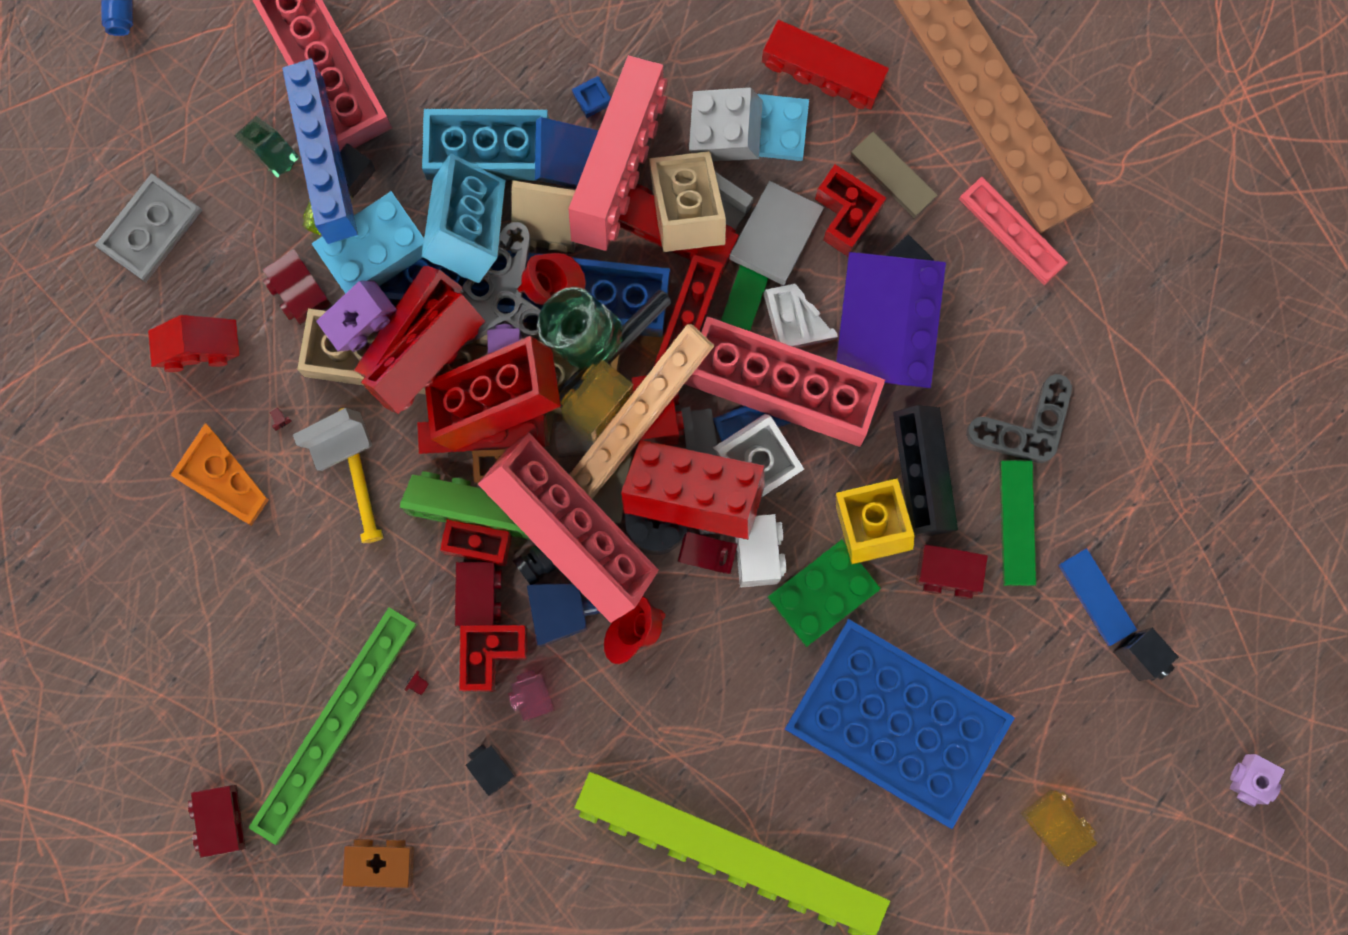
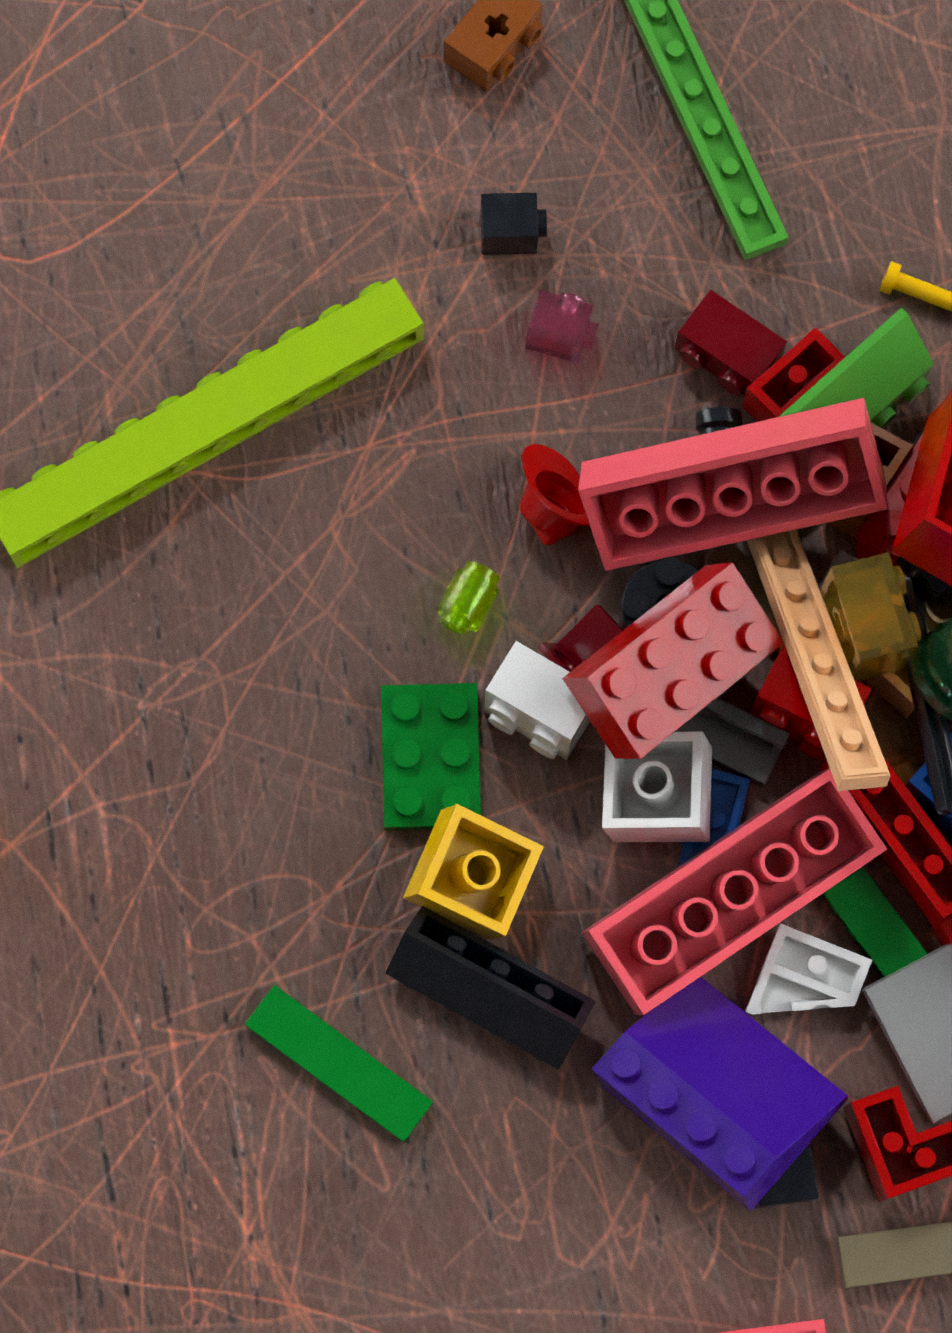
camera: 125 degrees right, 5 degrees down
(416, 684) = (673, 214): dark red piece -> none
(482, 647) = (657, 306): red brick -> none
(558, 611) = (642, 415): dark blue torso -> none
(725, 634) = (468, 598): none -> clear neon green brick
(899, 723) = (205, 729): blue plate -> none
(951, 571) = (340, 928): dark red brick -> none
(1038, 430) = (435, 1181): dark grey beam -> none
(1097, 597) = (171, 1093): blue tile -> none
(1147, 655) = (52, 1086): black brick -> none

